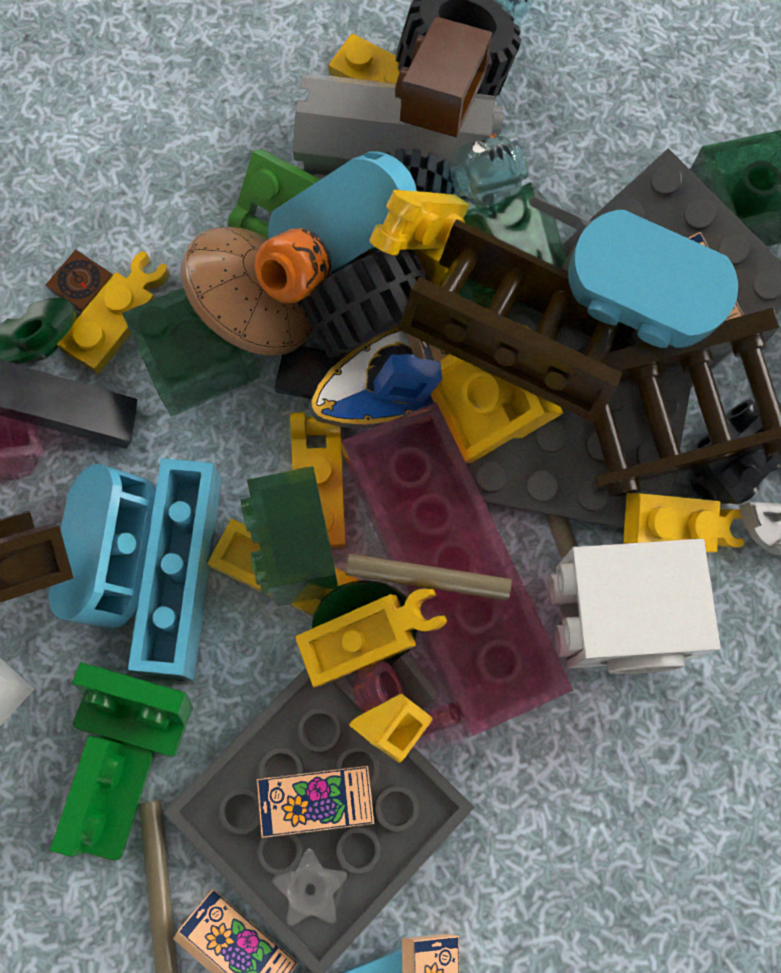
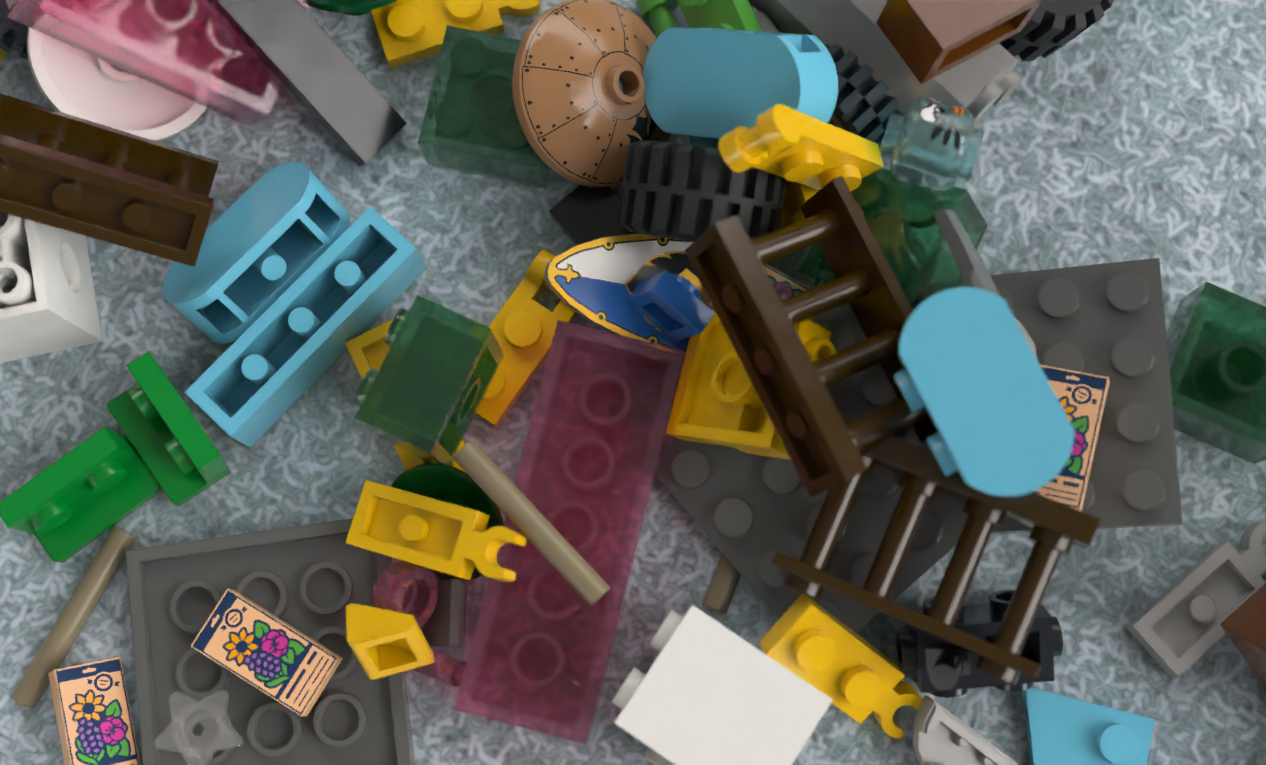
camera: 45 degrees right, 5 degrees up
(292, 264) = (640, 102): orange head -> none

